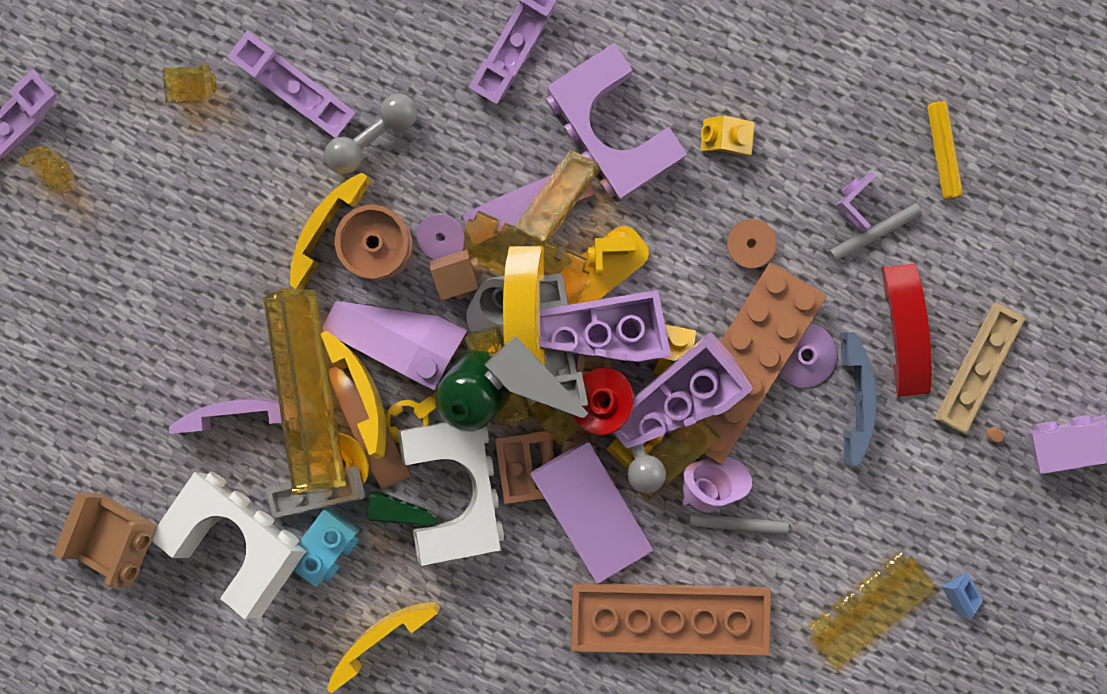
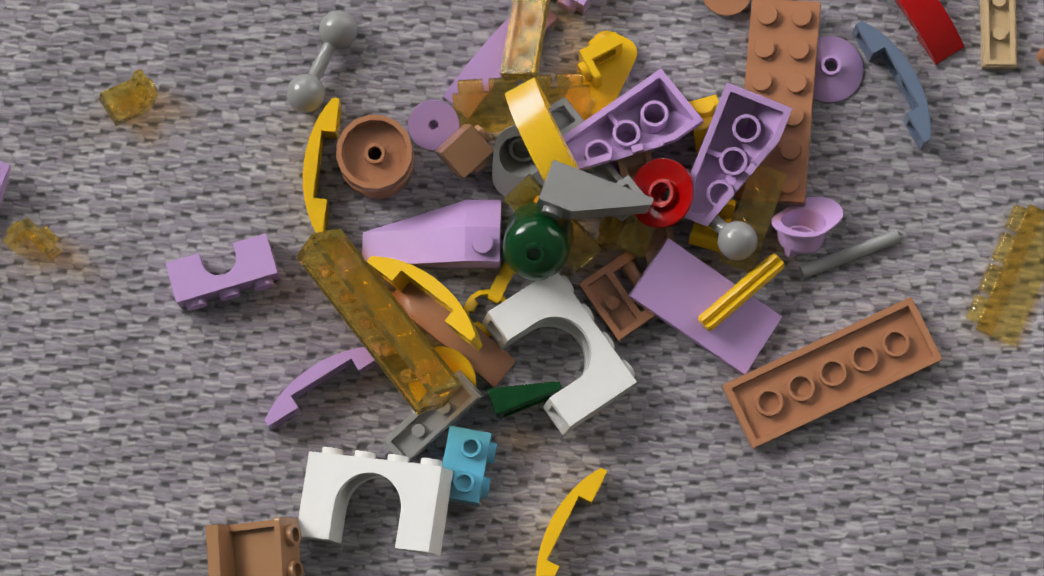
camera: 25 degrees left, 10 degrees down
(169, 274) = (253, 267): none -> lavender arch
(291, 85) = (226, 55): lavender slope -> none
(628, 517) = (741, 292): none -> yellow axle

